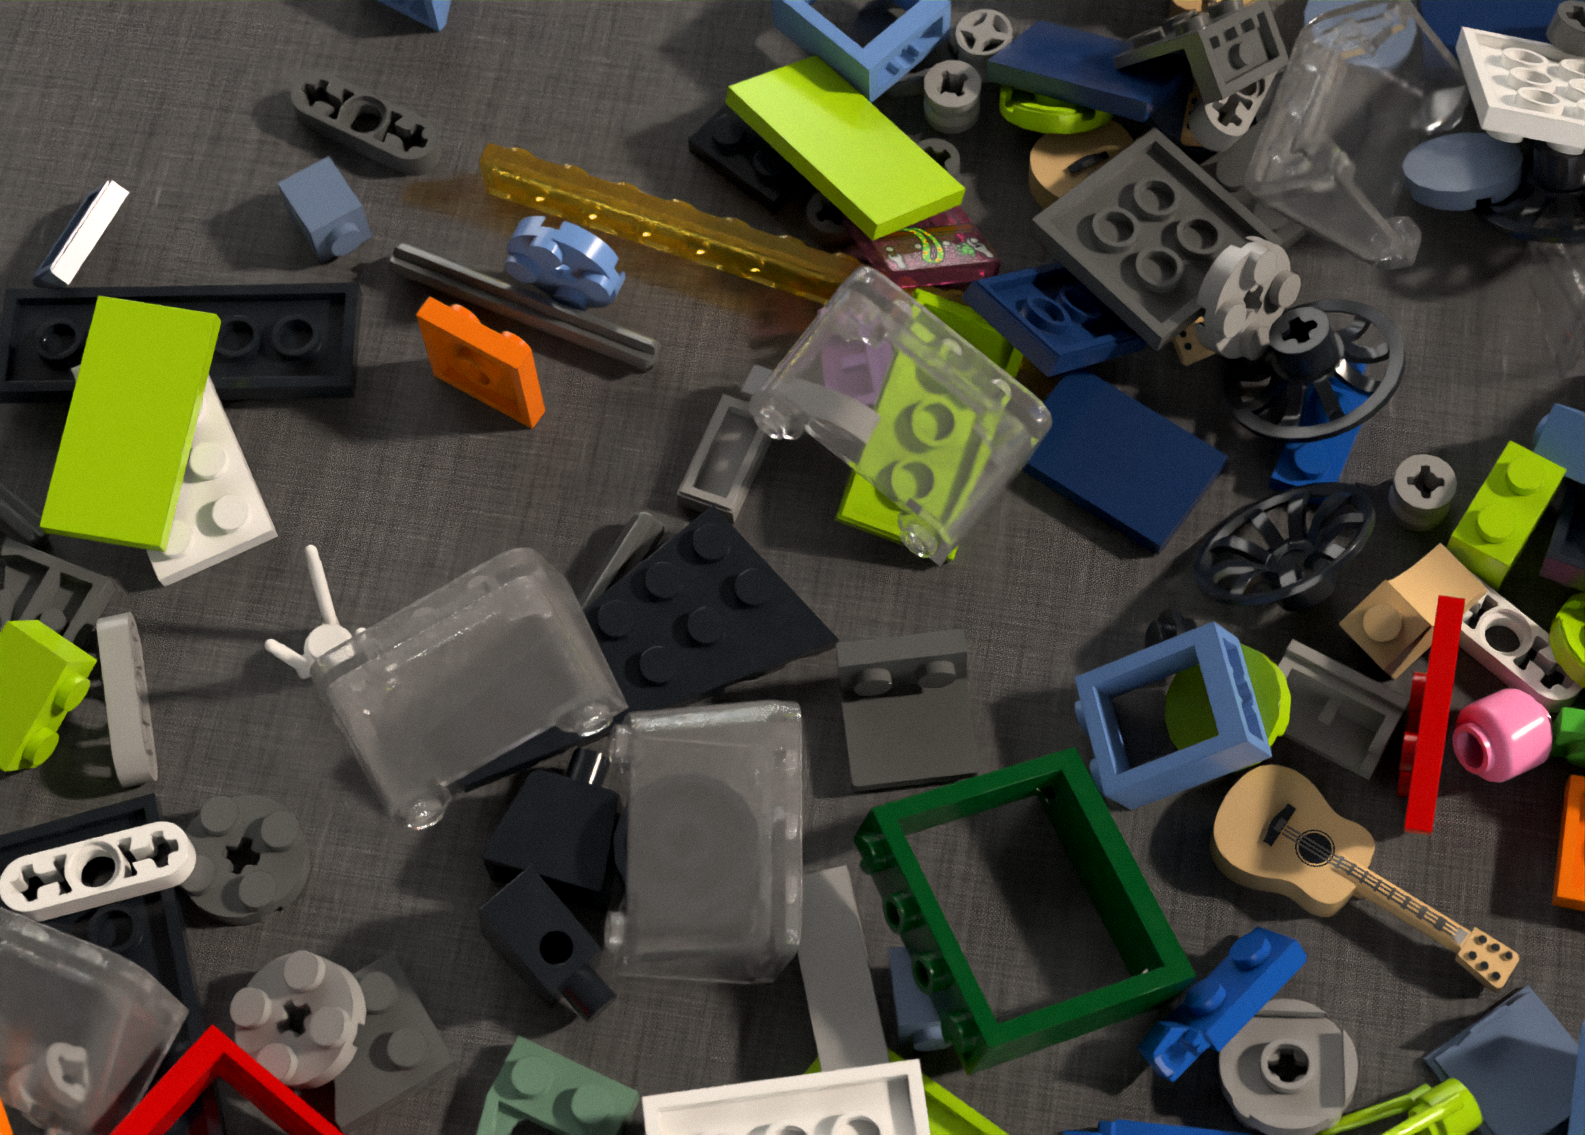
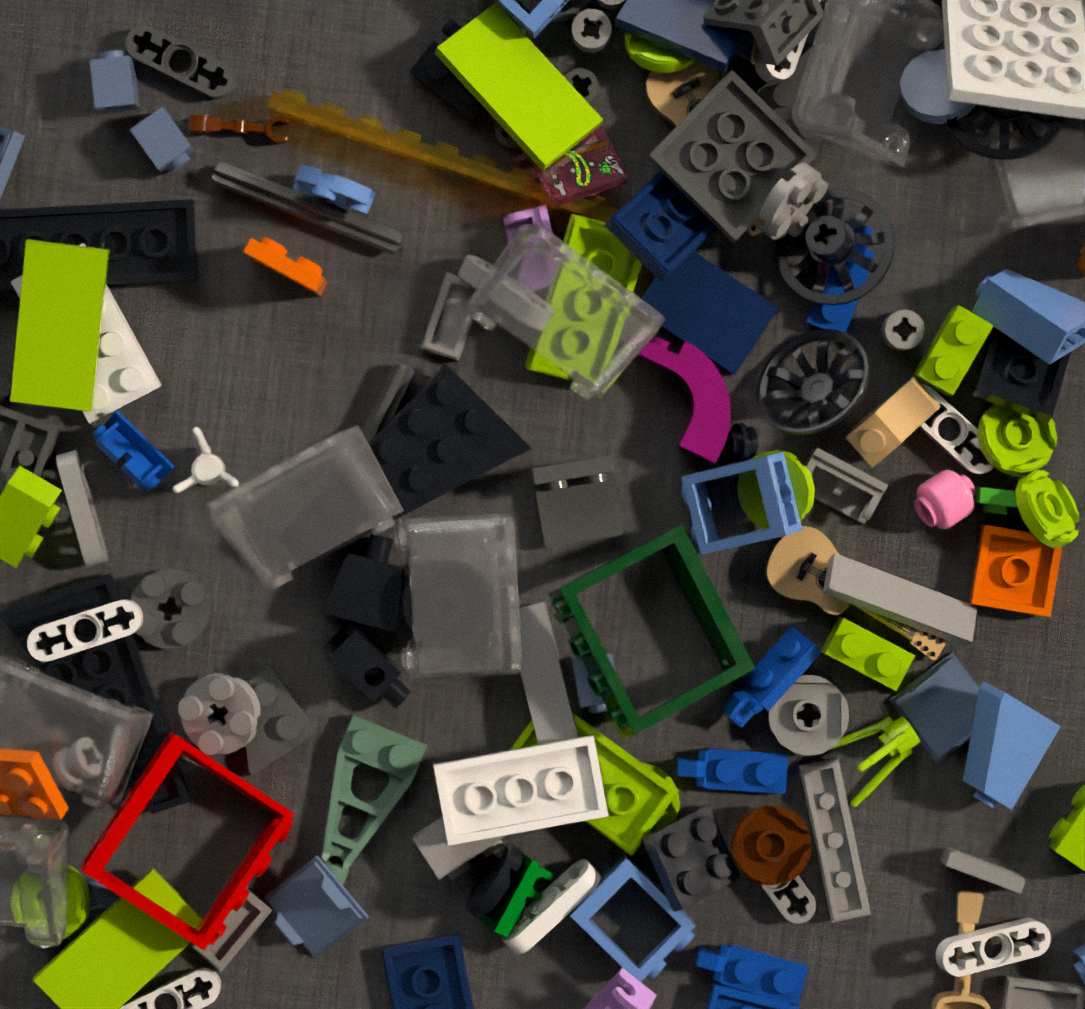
camera: 10 degrees left, 25 degrees up
(221, 616) = (144, 461): none -> blue hinge
(266, 139) = (114, 82): none -> sand blue brick
(393, 198) = (207, 124): none -> reddish brown piece
(1108, 551) = (708, 394): none -> magenta arch
(1385, 968) = (867, 653): none -> lime brick
(1429, 719) = (900, 493): red wing -> none
(1438, 881) = (900, 600): none -> light grey tile

